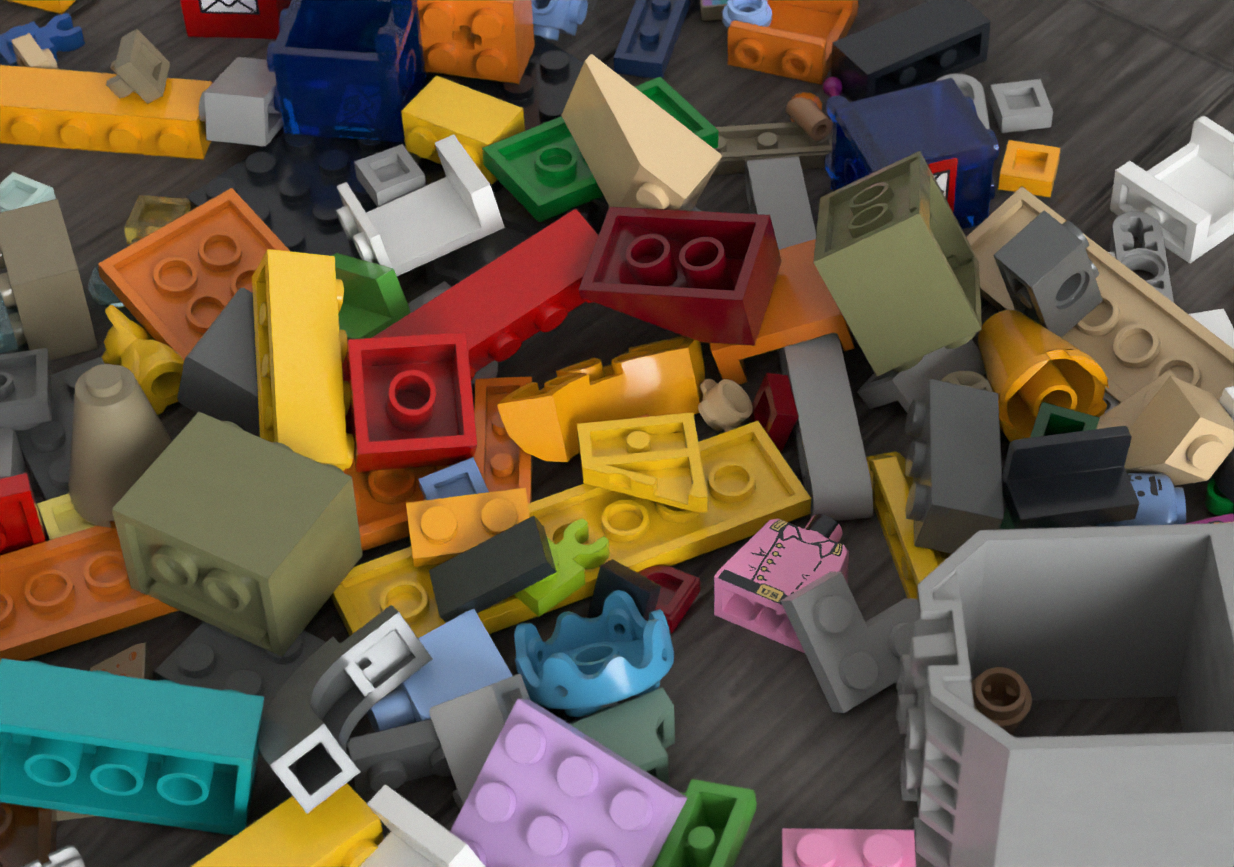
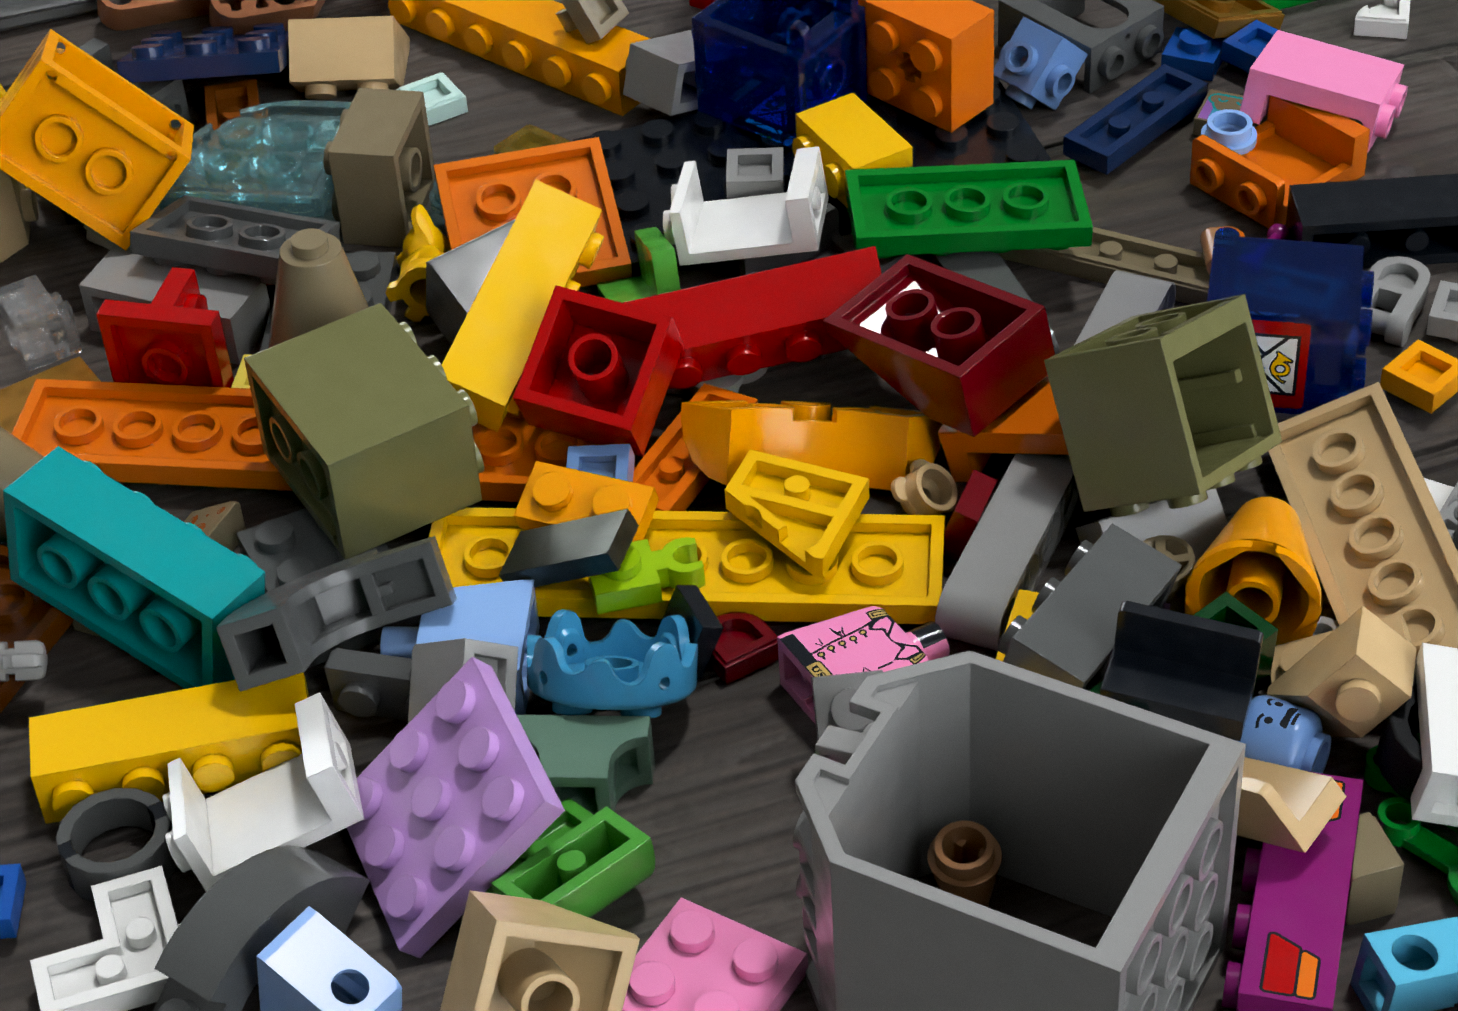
camera: 30 degrees right, 5 degrees down
(634, 145) = (972, 211): tan slope -> none
(1050, 273) = (1323, 472): dark grey brick -> none

